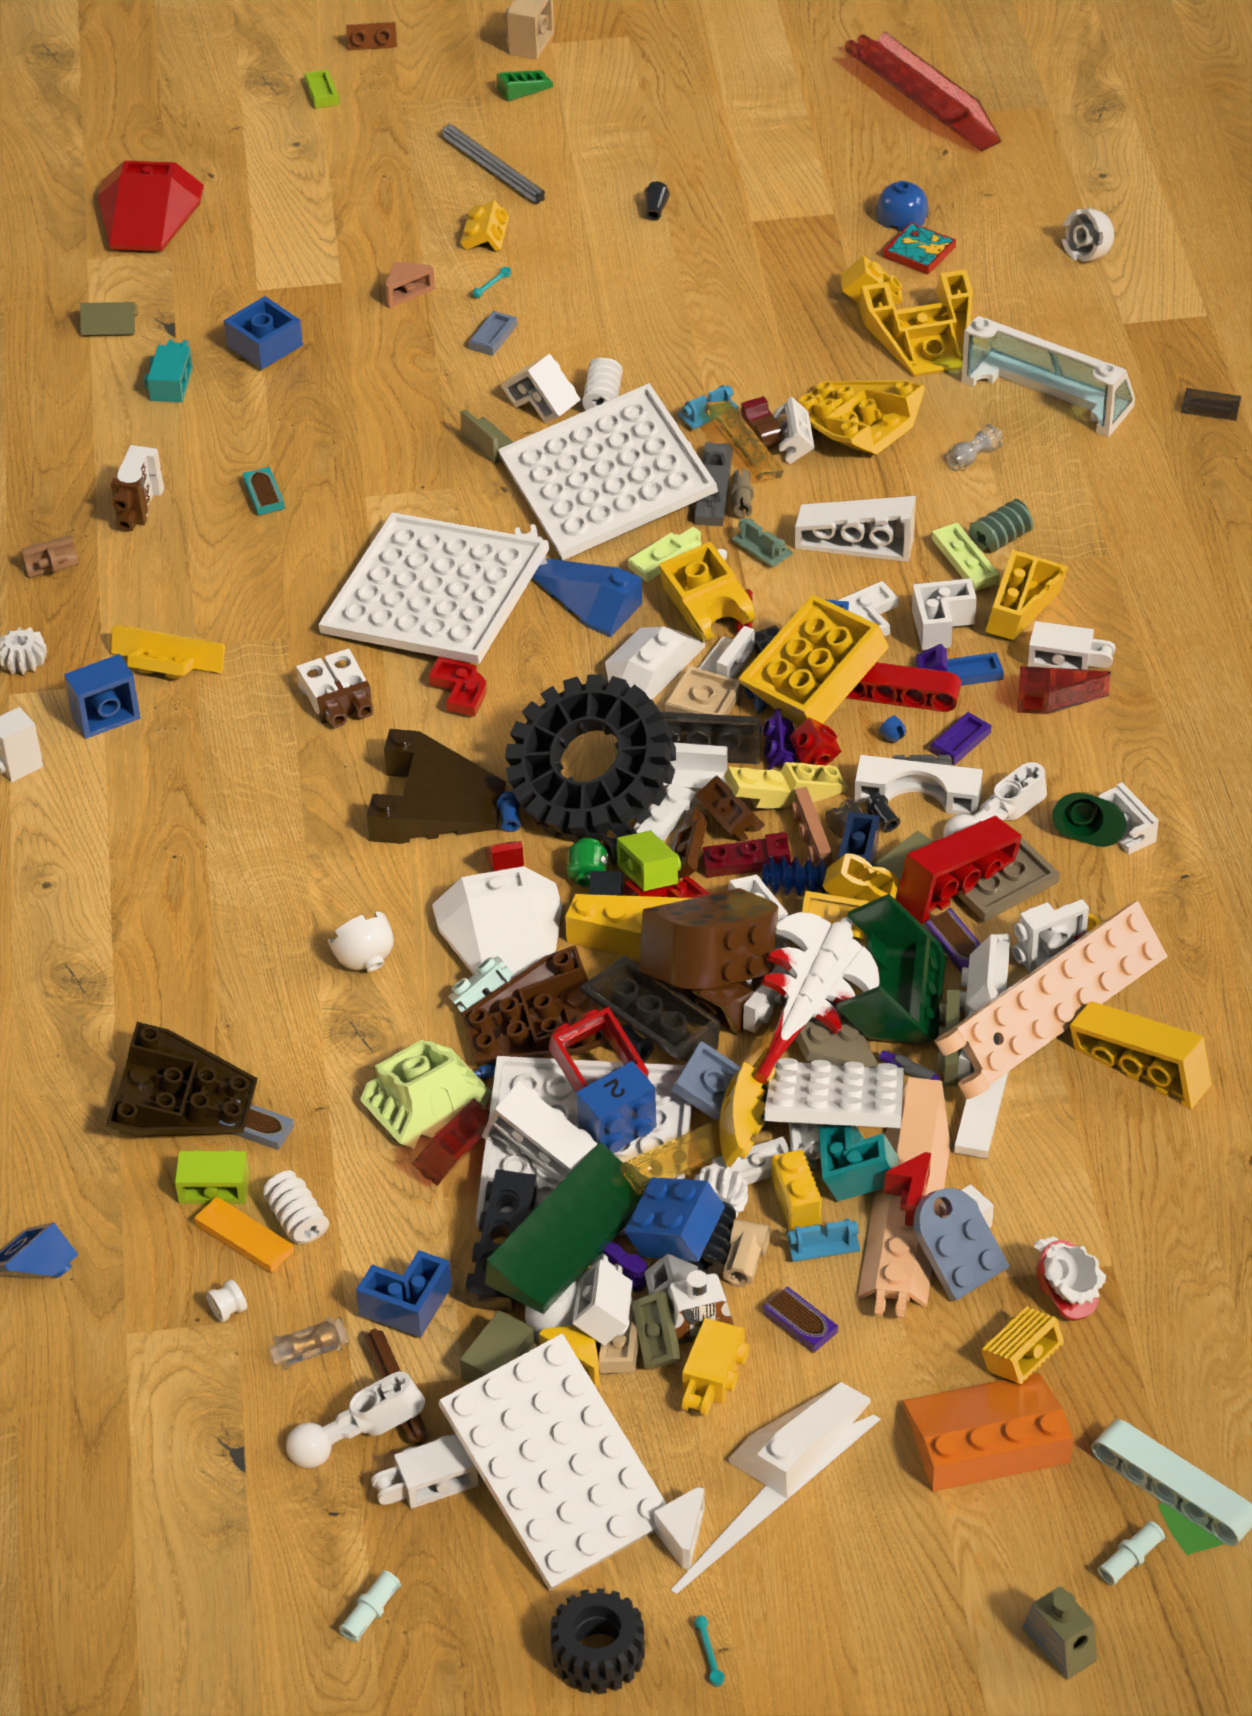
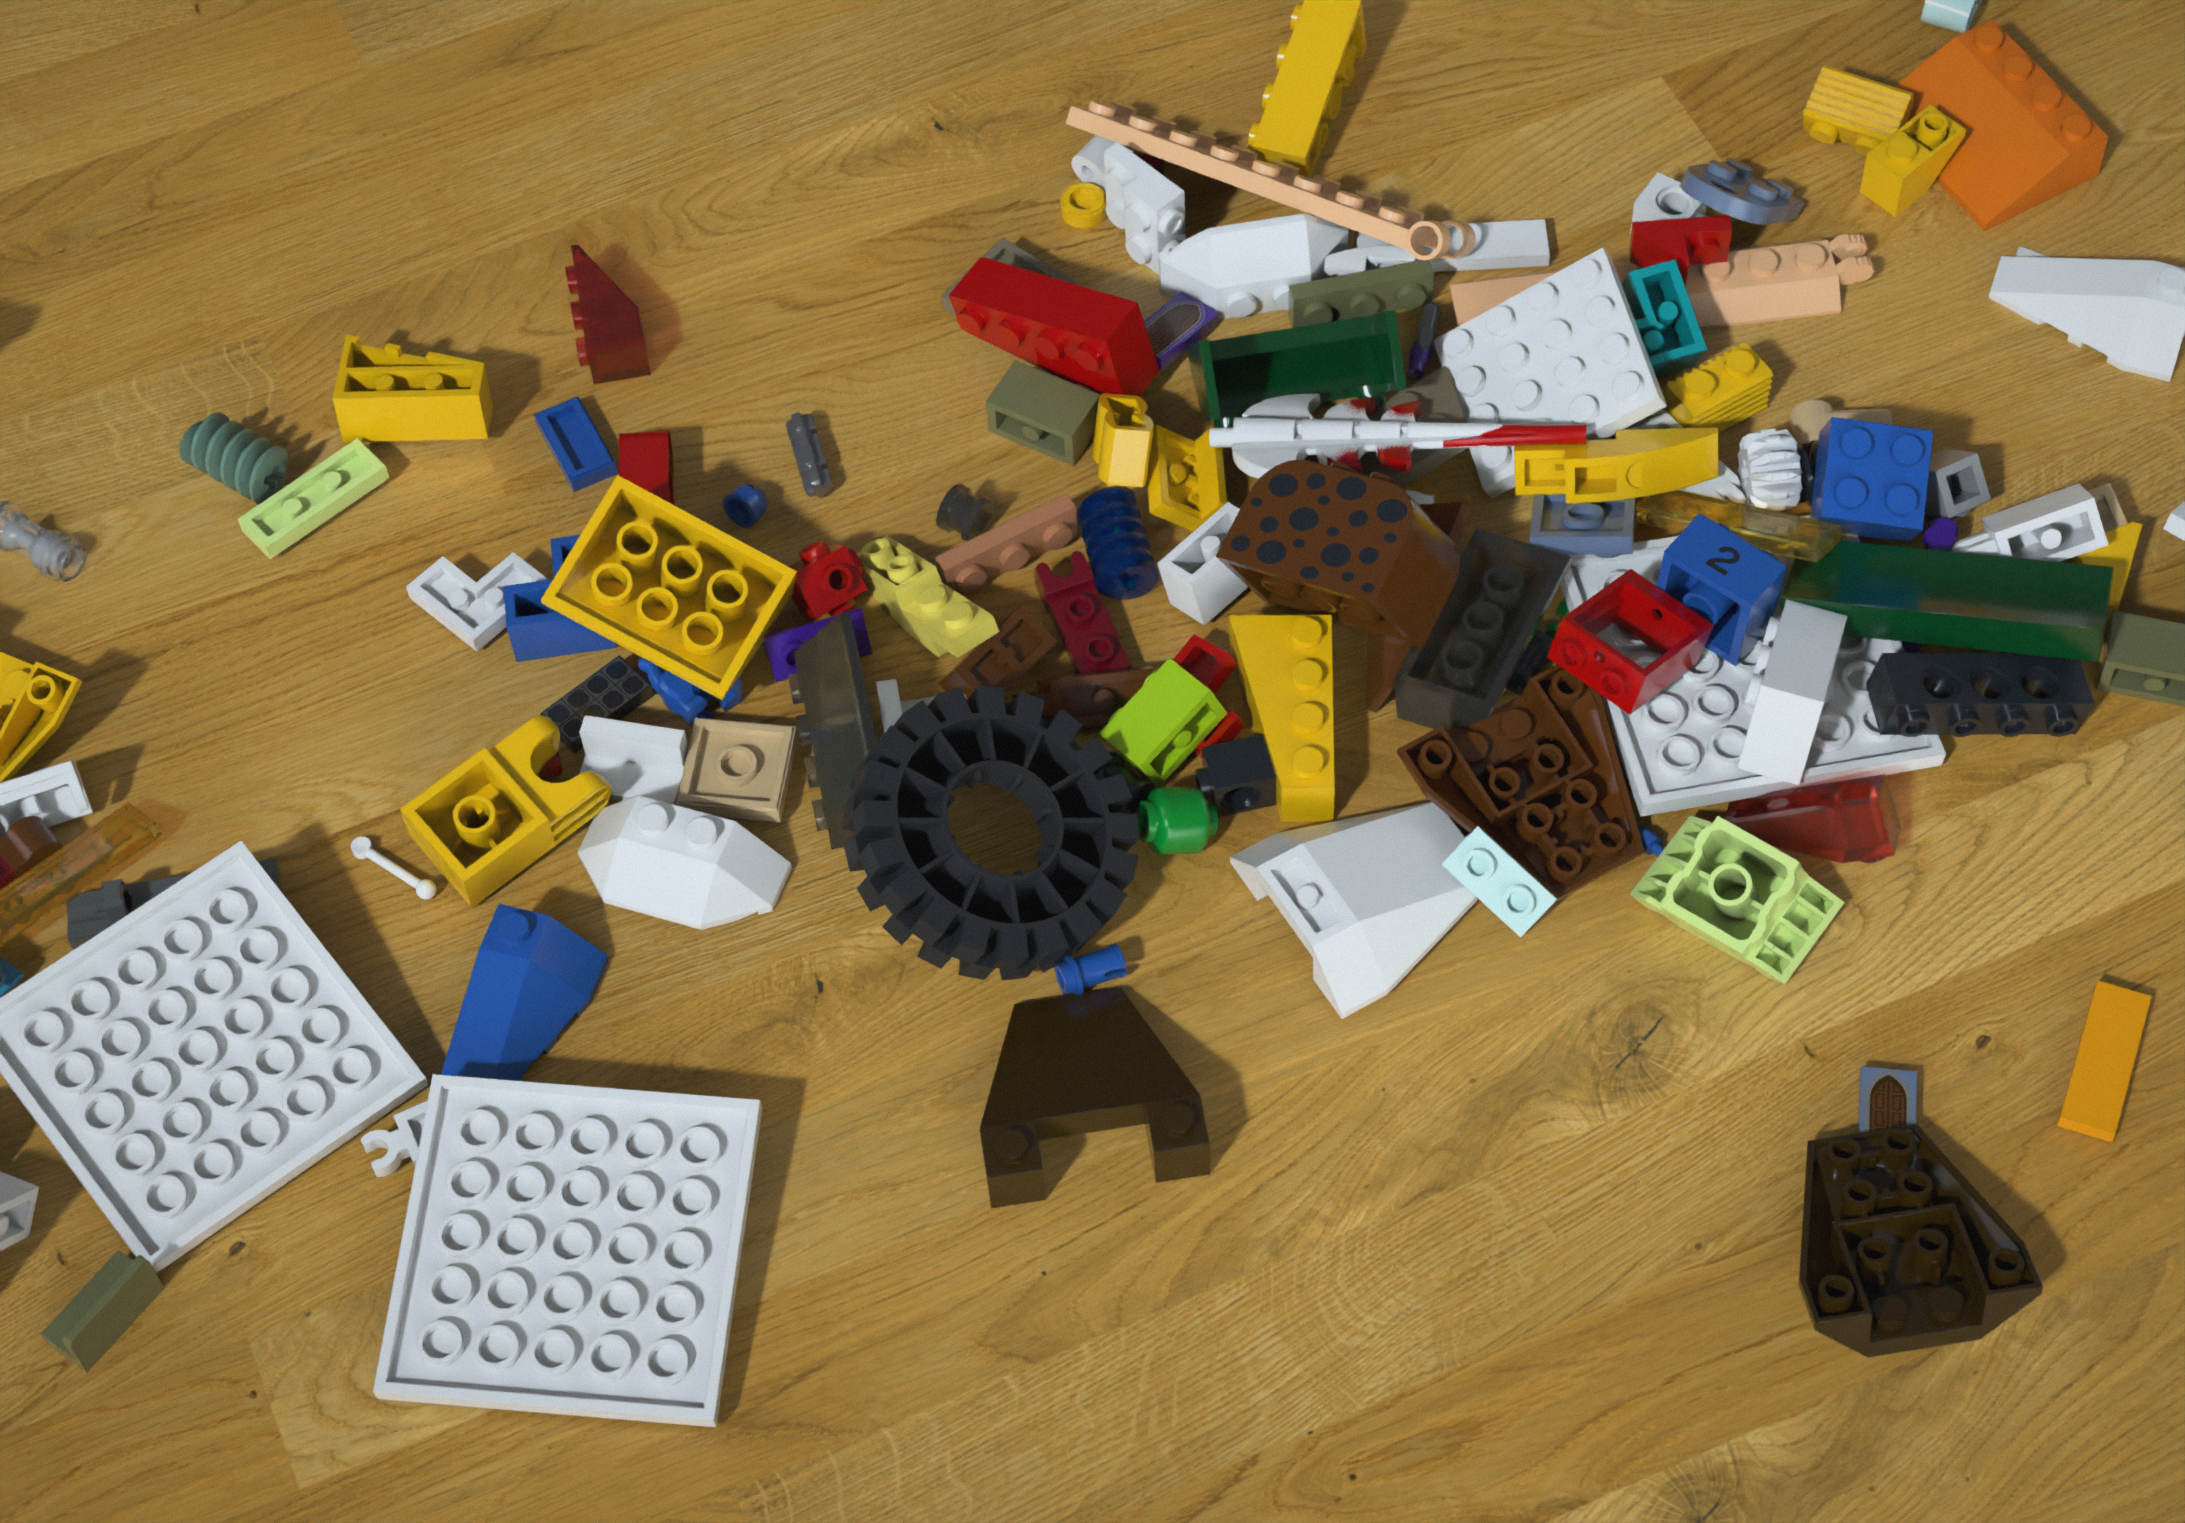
camera: 105 degrees left, 10 degrees up
(212, 1174) = (2031, 1132): lime brick -> none
(295, 1208) = (2044, 986): white piece -> none
(336, 690) = (875, 1331): hips -> none
(363, 943) = (1474, 1074): white cylinder -> none
(406, 1299) = (2134, 779): blue brick -> none
(465, 682) = (809, 1120): red plate -> none
(505, 855) = (1198, 940): red slope -> none
(646, 561) = (392, 920): yellowish green hinge -> none
(656, 1330) = (2032, 477): olive plate -> none
(694, 1300) = (1983, 427): white torso -> none
(713, 1365) = (2051, 418): yellow brick -> none
(742, 492) = (199, 847): dark tan pin -> none
(760, 543) = (335, 785): sand green hinge -> none
(800, 1319) = (1913, 355): tile -> none
(826, 1241) = (1791, 373): dark azure hinge -> none
(859, 527) = (282, 642): white wedge -> none
(861, 836) = (1039, 468): dark blue brick -> none
(878, 805) = (925, 481): black pin -> none
(933, 658) = (580, 485): dark purple tile -> none
(940, 607) = (476, 493): white brick -> none
(952, 786) = (870, 483): white arch -> none
(961, 737) = (735, 423): dark purple tile -> none
(963, 1356) = (1910, 160): none -> yellow slope
(1010, 800) = (840, 307): white beam -> none
(1068, 647) = (510, 328): white brick -> none
(1069, 1277) = (1730, 84): white hair -> none
(1089, 819) = (879, 225): dark green piece -> none
(1141, 823) = (860, 192): white hinge -> none

